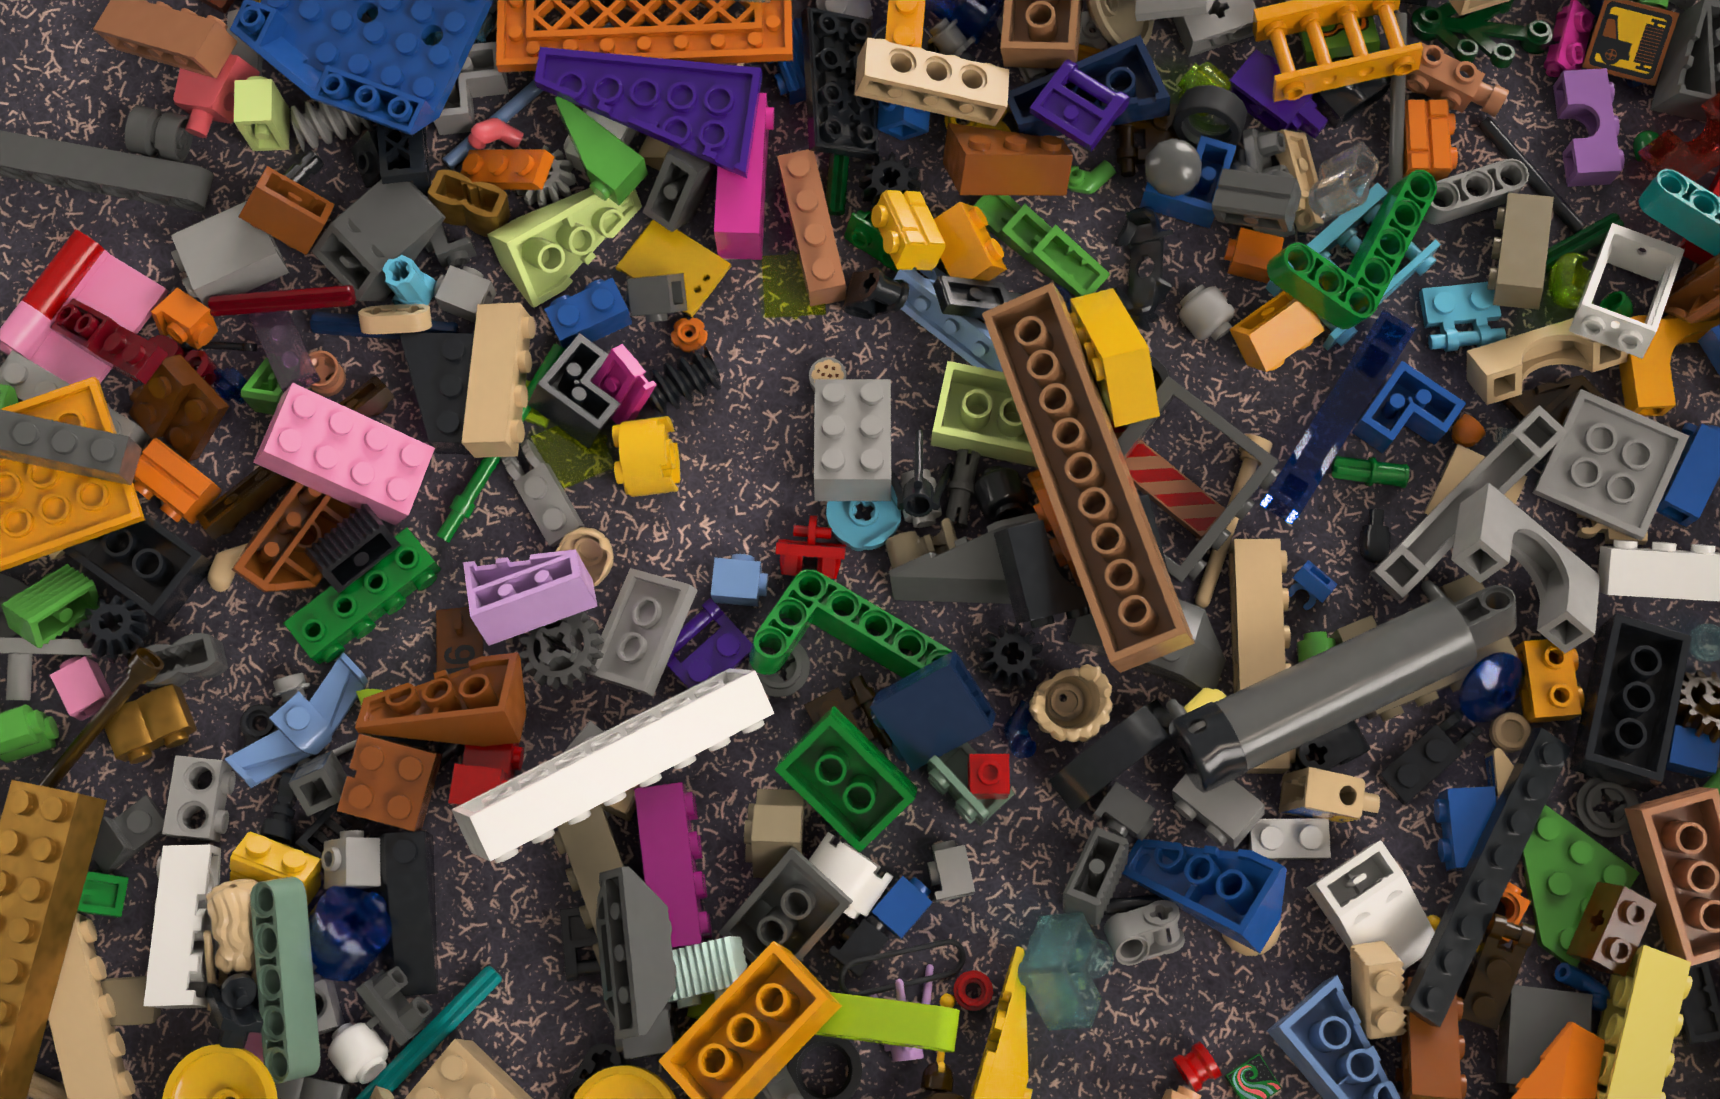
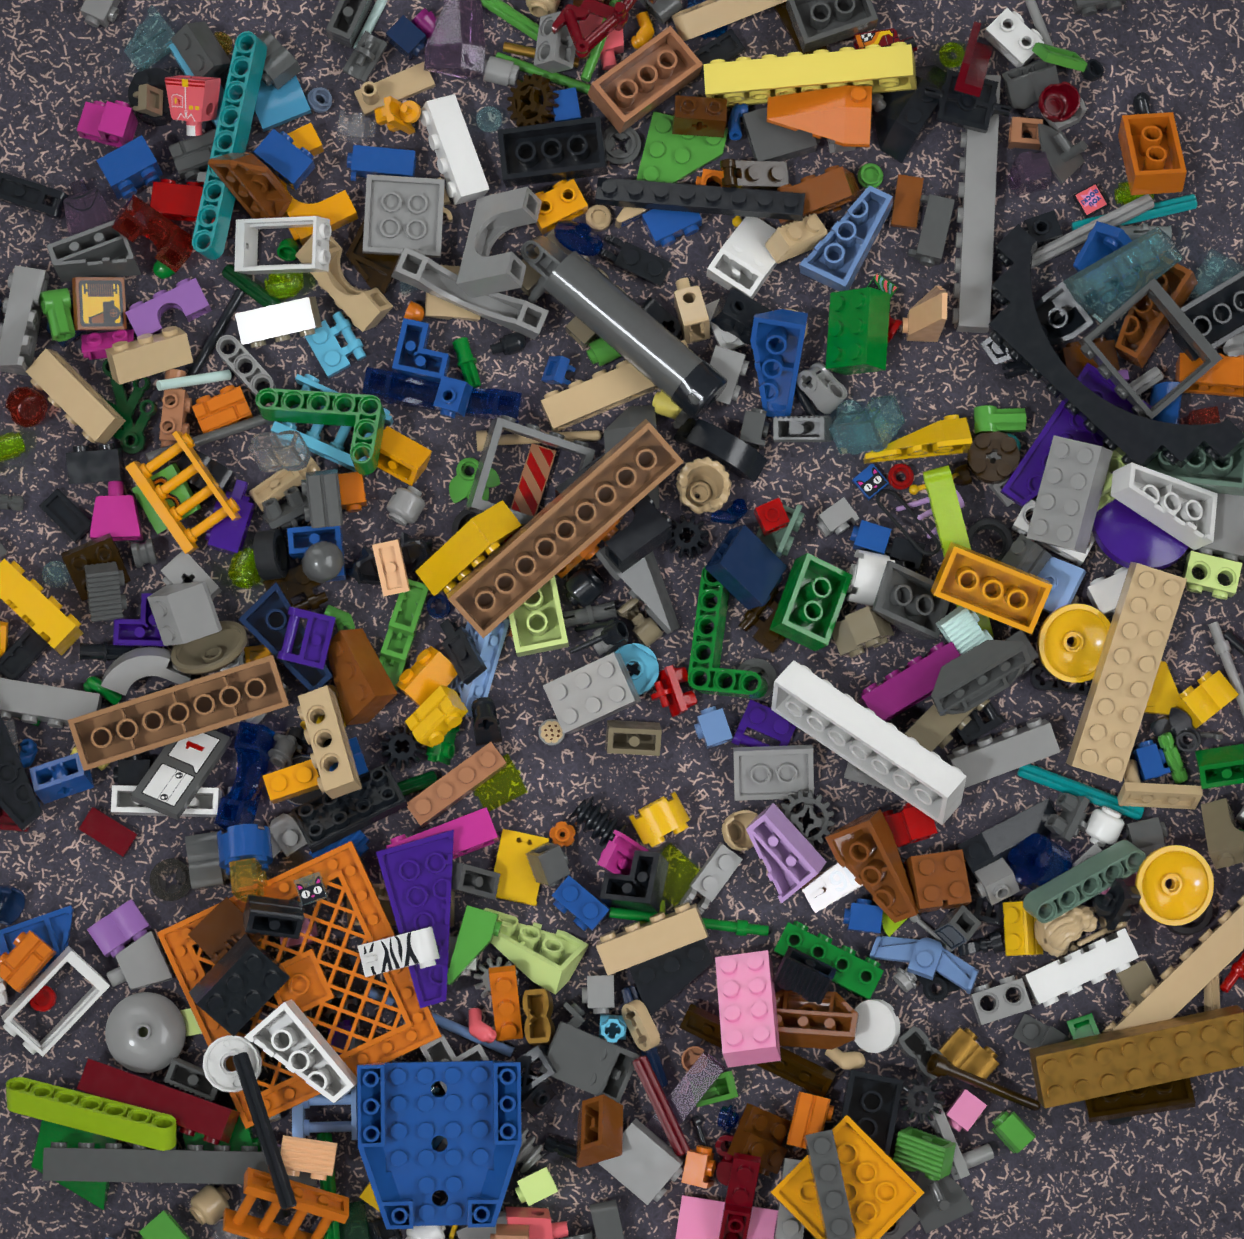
camera: 115 degrees left, 5 degrees up
(247, 617) = (876, 1026): none -> white tile
(396, 664) = (863, 917): none -> blue brick
(523, 955) = (1006, 752): none -> light grey brick
(616, 51) = (399, 952): none -> white door
(770, 469) = (633, 737): none -> dark tan brick
(984, 944) = (870, 481): none -> tile
(1130, 255) = (391, 567): none -> light nougat plate
(1200, 432) = (461, 484): none -> bright green plate
(1206, 1018) = (858, 331): none -> green brick
(1303, 855) = (736, 314): none -> black brick
(1330, 423) = (452, 397): none -> blue brick
(1482, 115) = (192, 380): none -> light aqua bar
(1537, 73) = (149, 355): none -> tan brick

